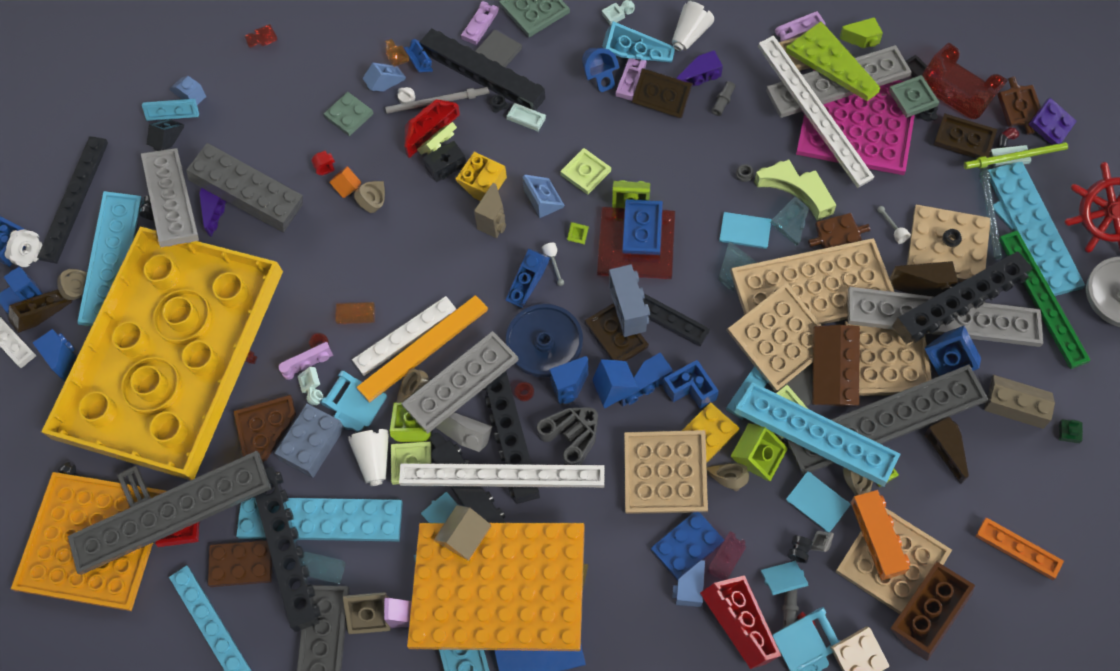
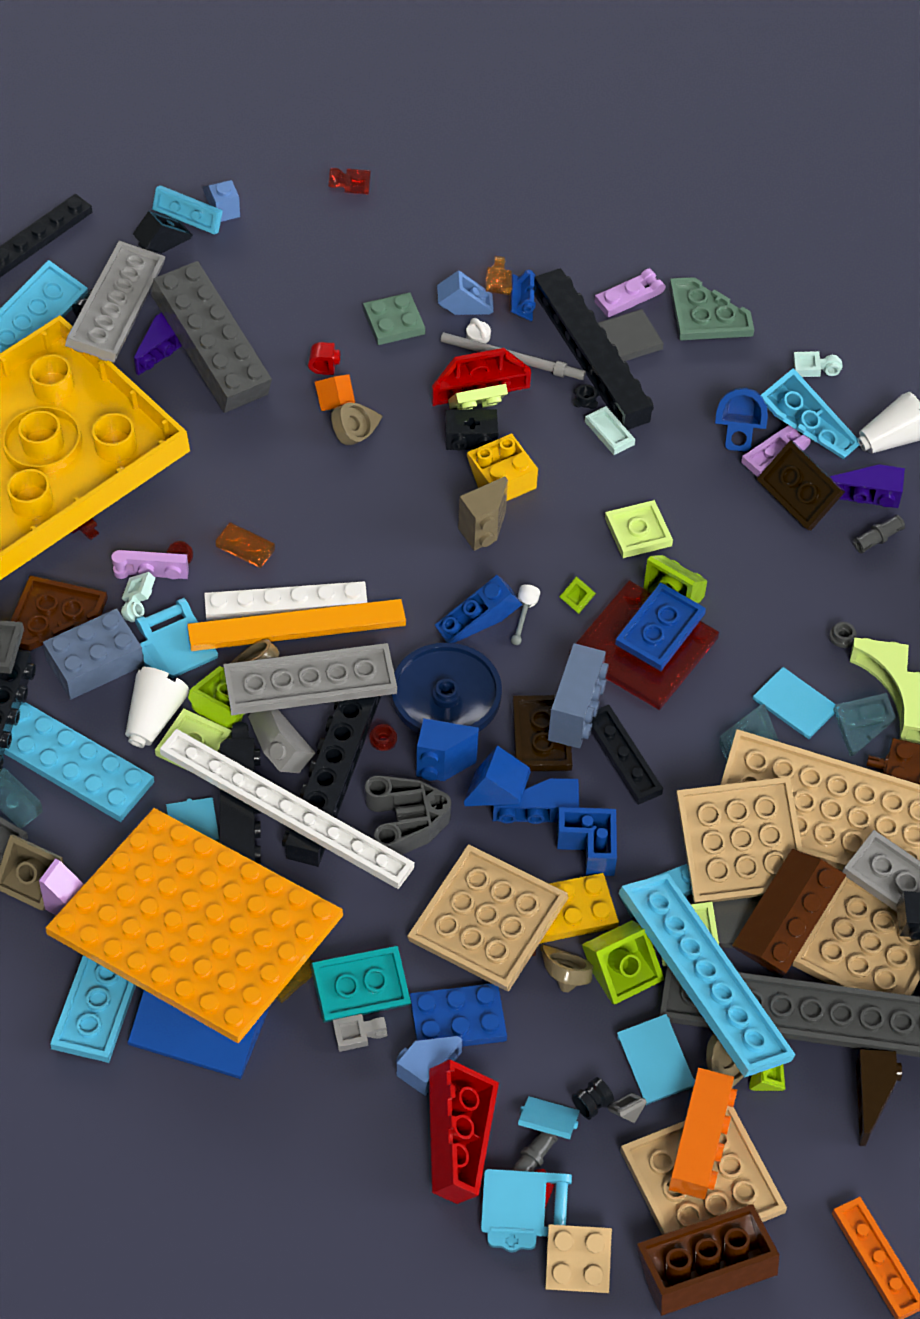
camera: 25 degrees right, 10 degrees down
(463, 532) = (195, 840): dark tan slope -> none
(542, 195) = (565, 528): medium blue slope -> none
(619, 561) = (360, 984): none -> teal plate
(635, 593) = (353, 1031): none -> light grey plate
(727, 557) = (497, 1053): clear pink hinge -> none

